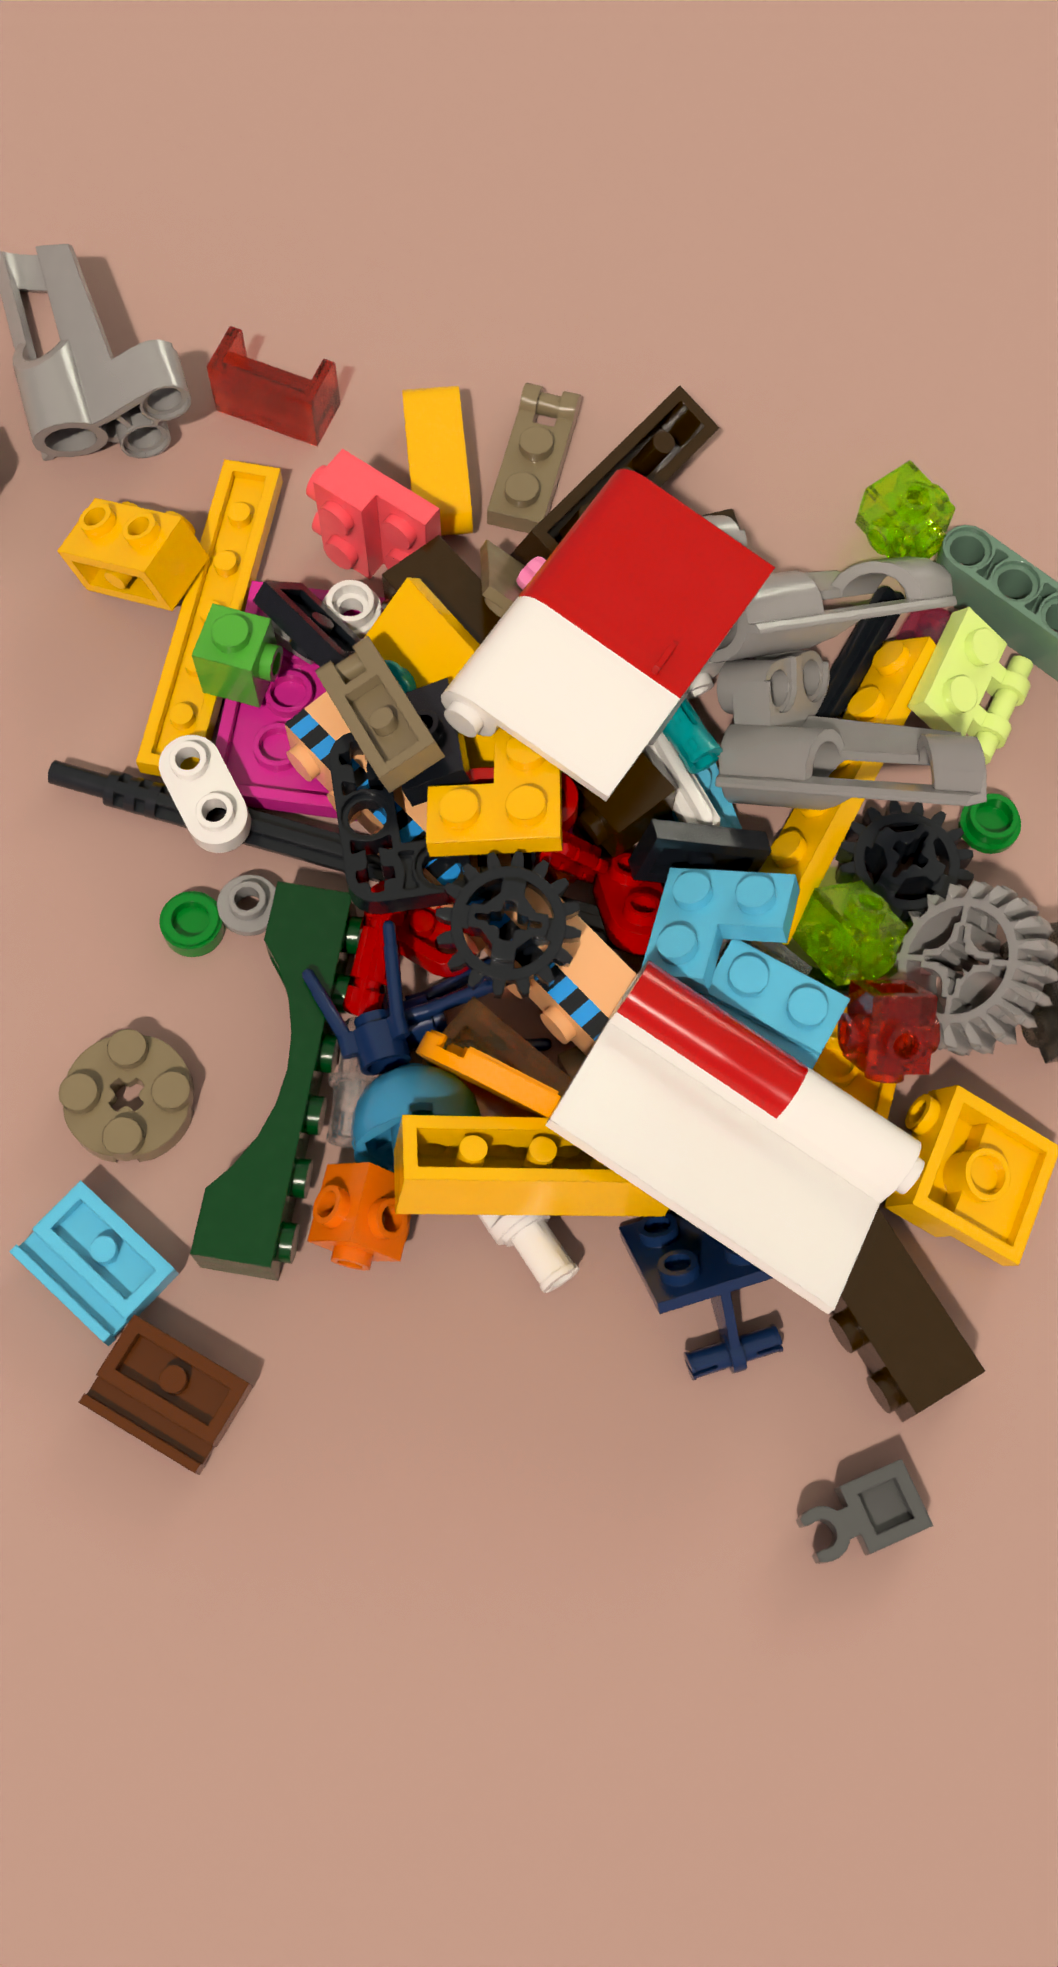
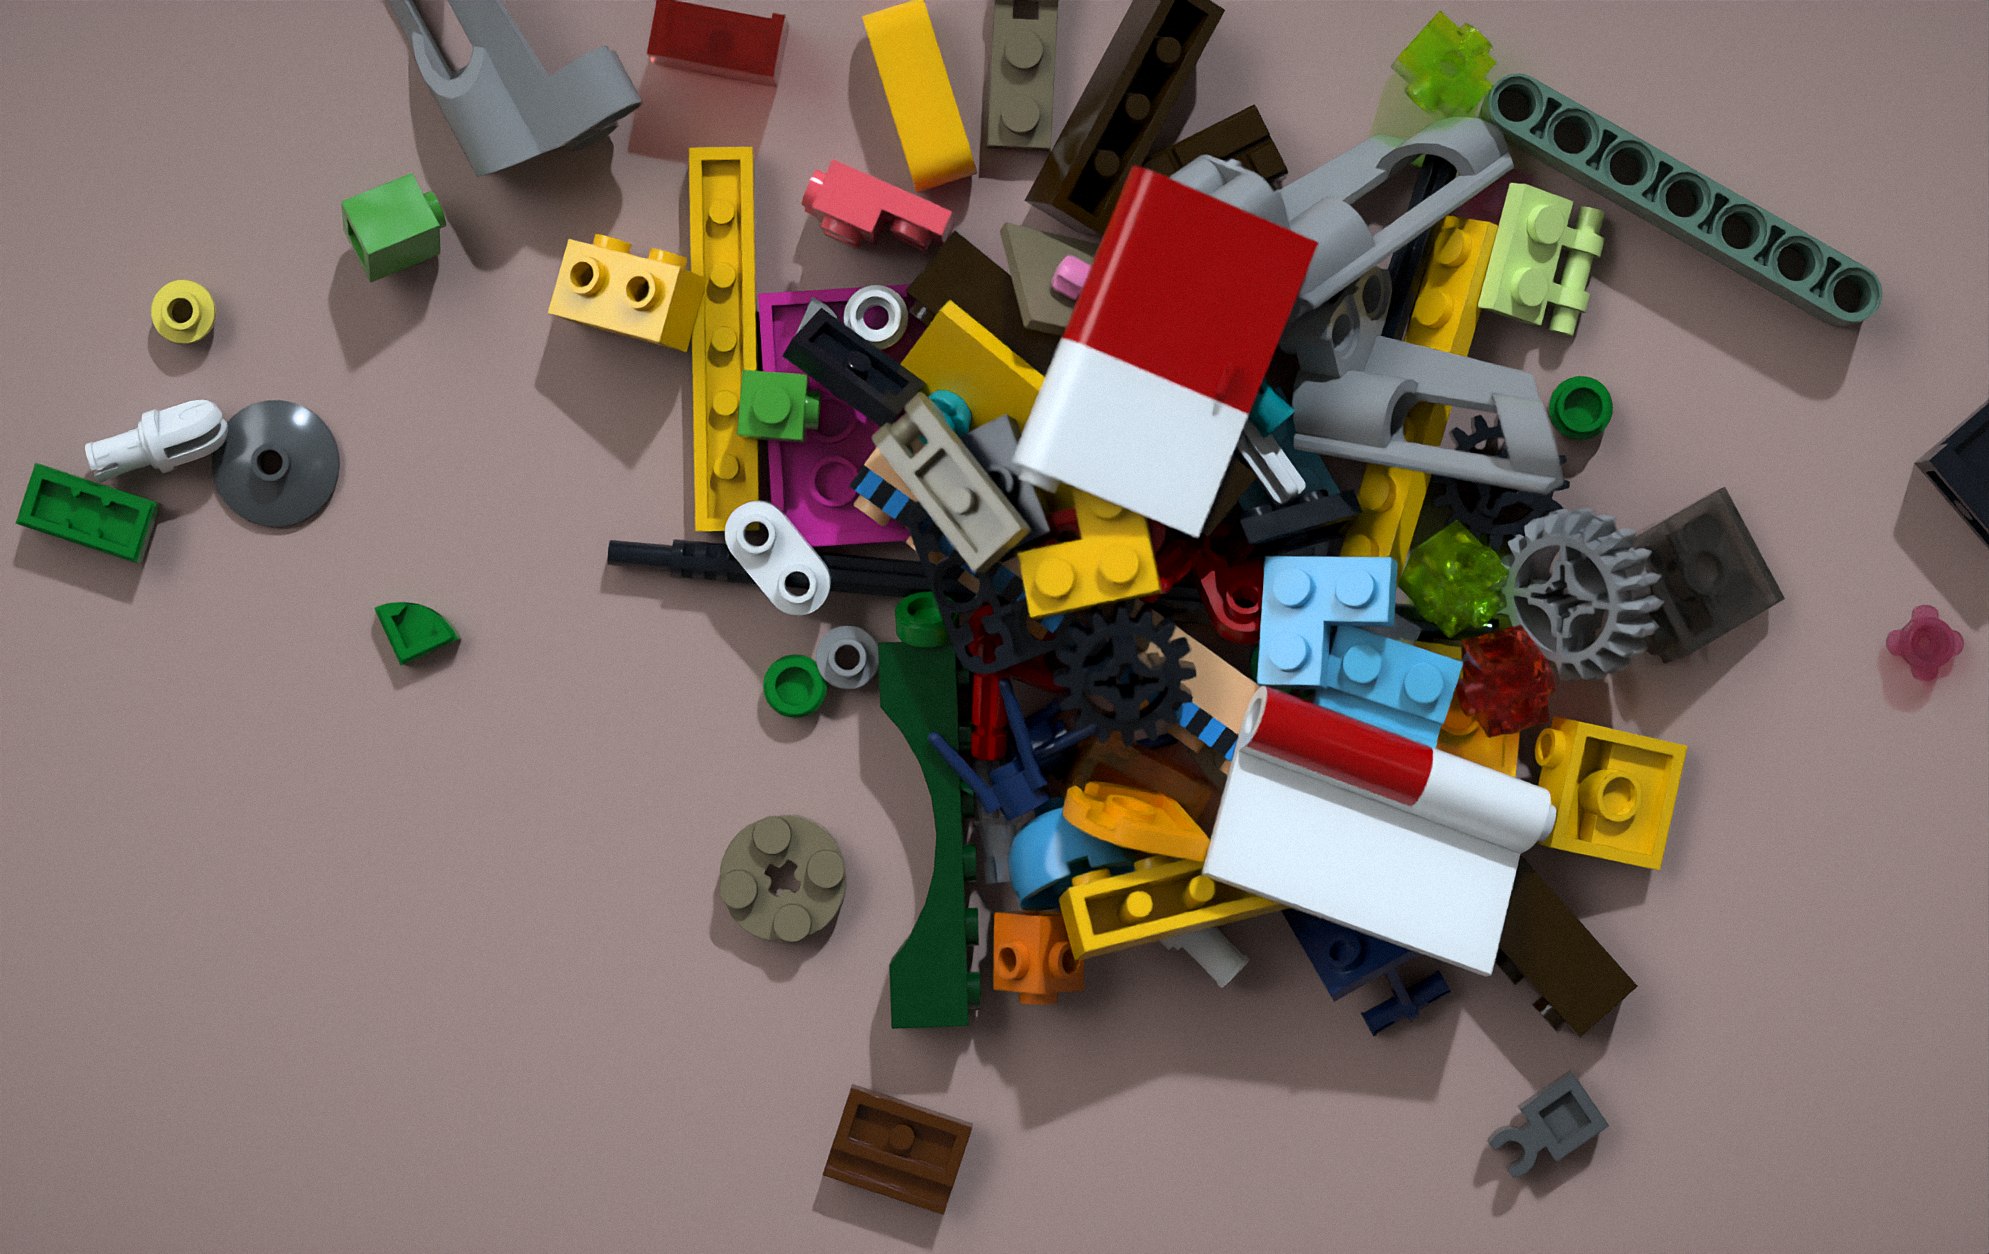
camera: 15 degrees left, 20 degrees up
(94, 1262) = (798, 1044): medium azure plate -> none
(323, 872) = (920, 621): none -> green tile

